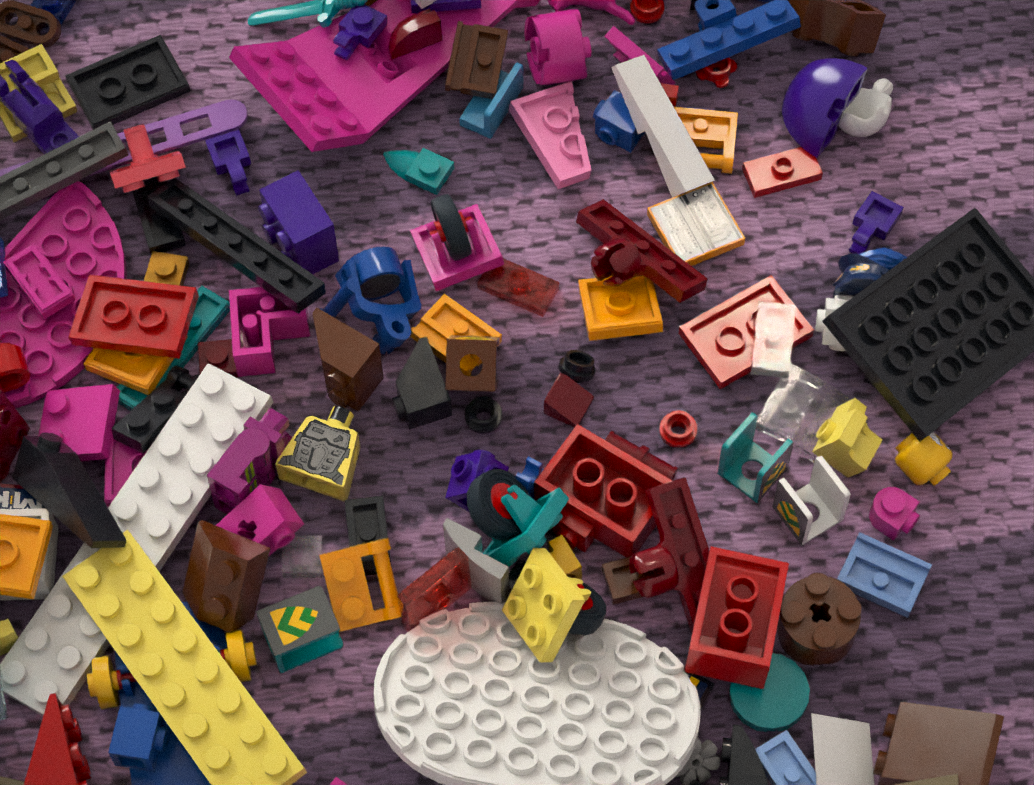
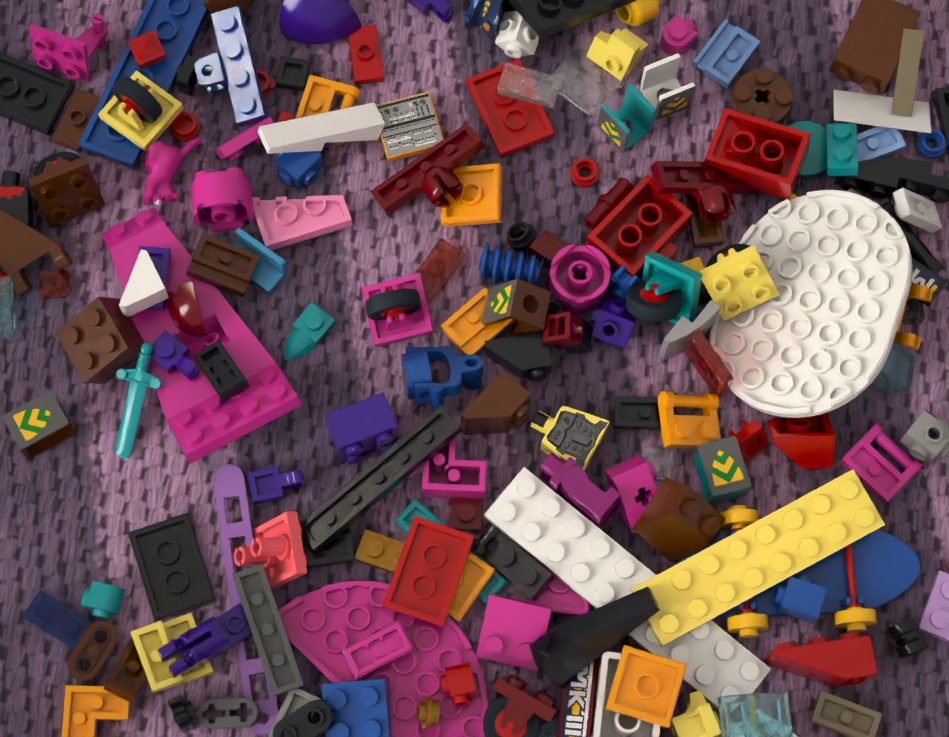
camera: 85 degrees left, 10 degrees up
(82, 23) = (103, 599): none -> teal plate
(344, 73) = (221, 371): none -> black plate
(346, 661) = (750, 439): none -> red tile
(348, 724) = (805, 440): none -> red slope
(451, 425) = (568, 331): none -> dark red leg
(526, 426) = (580, 262): none -> dark pink brick
(530, 357) = (509, 267): none -> blue piece
(738, 97) = (292, 73): none -> black plate
(768, 725) = (842, 149): none -> teal plate

